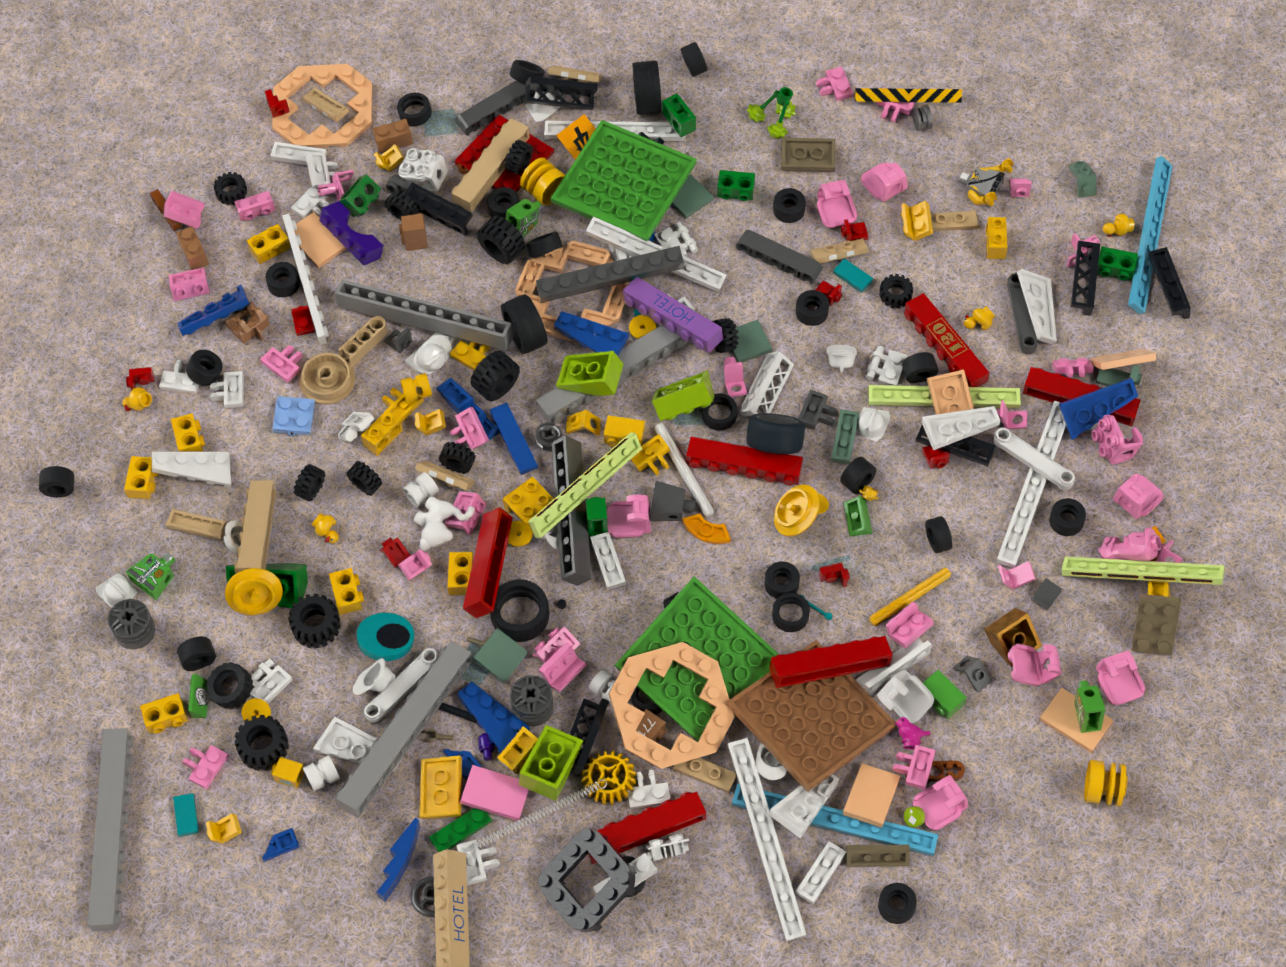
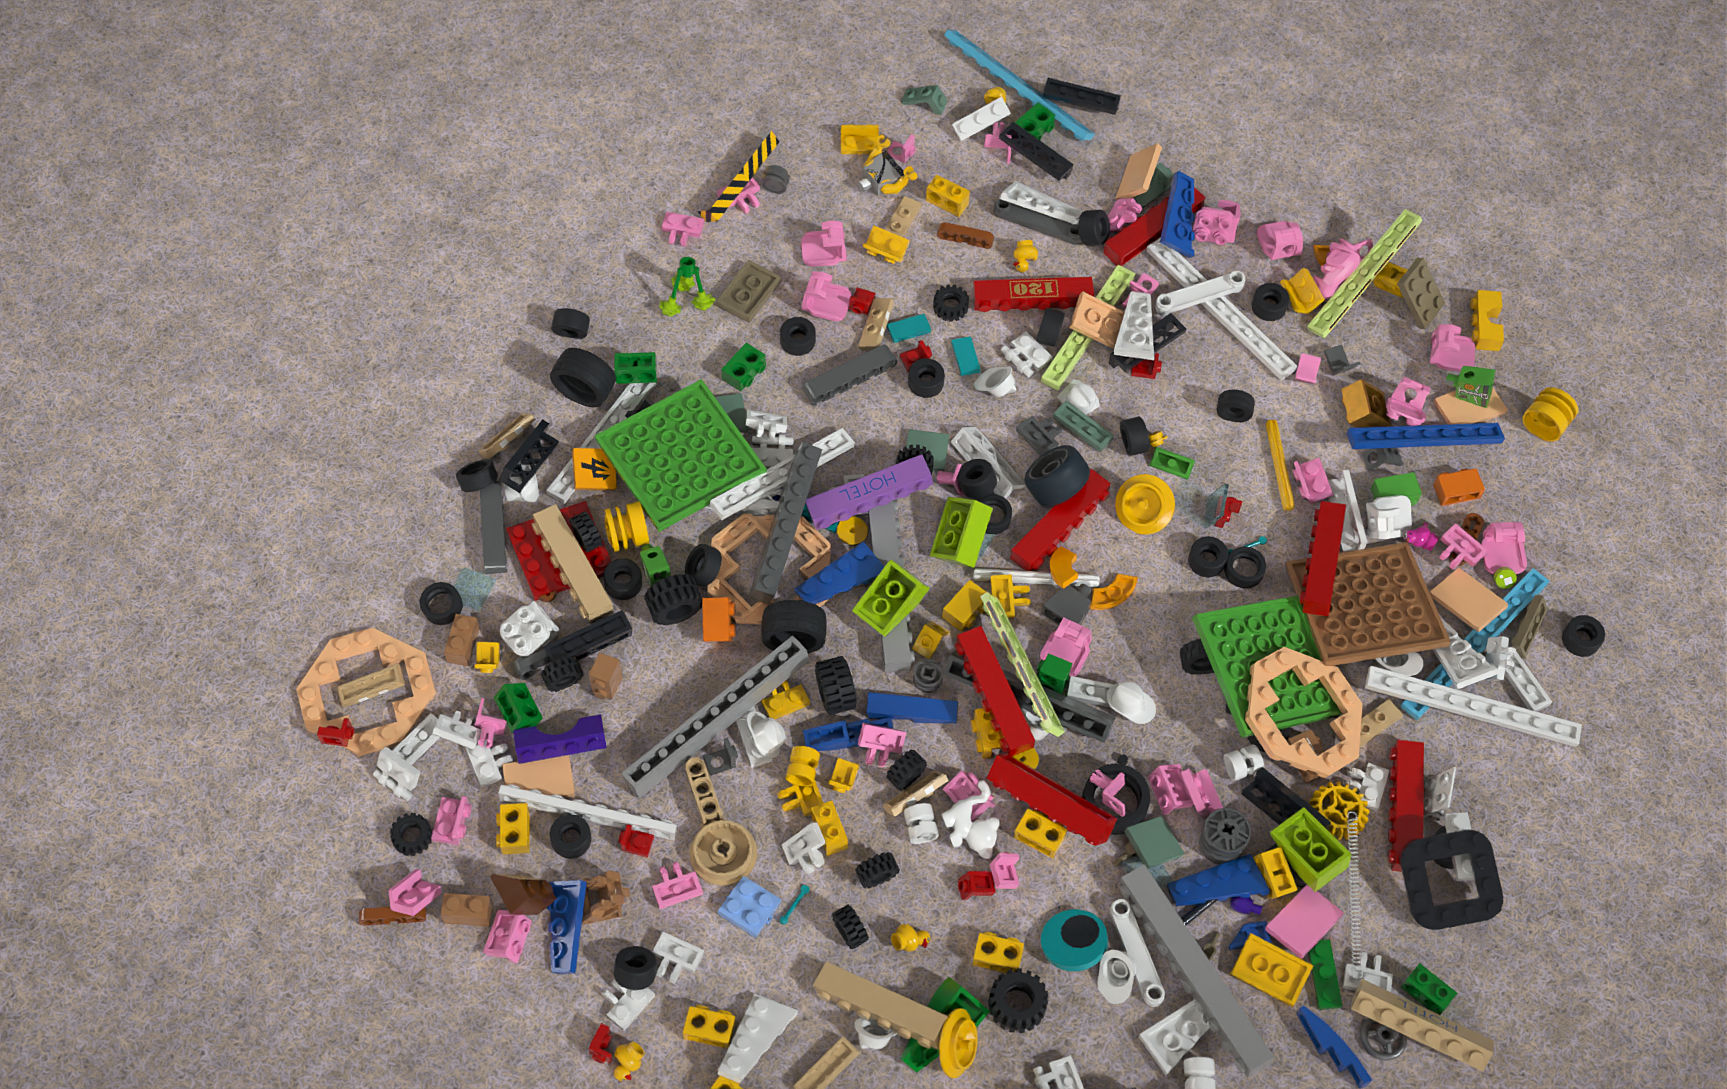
camera: 65 degrees left, 0 degrees up
(219, 271) = (523, 894): none -> reddish brown slope
(266, 153) = (398, 769): none -> white plate
(328, 444) = (804, 890): none -> teal hinge
(487, 910) = (1428, 989): none -> green brick
(504, 277) = (718, 620): none -> orange brick
(515, 595) = (1110, 788): none -> bright pink bracket
(548, 477) = (995, 692): none -> red brick
(611, 584) = (1131, 702): none -> white piece
(696, 222) = (767, 421): none -> white hinge
(700, 479) = (1061, 567): none -> light orange tile
(738, 382) = (977, 478): none -> black tyre
(831, 833) = (1496, 654): none -> white hinge
(855, 326) = (965, 356): none -> teal tile
(968, 267) = (955, 233): none -> dark orange beam
(981, 742) = (1458, 486): none -> orange brick
(1007, 149) = (858, 138): none -> yellow bracket
(1010, 691) = (1425, 435): none -> blue plate
(1036, 343) = (1093, 227): none -> black tyre
(1090, 223) = (981, 119): none -> white plate
(1093, 535) = (1303, 292): none -> yellow bracket
(1189, 686) = (1485, 333): none -> yellow arch

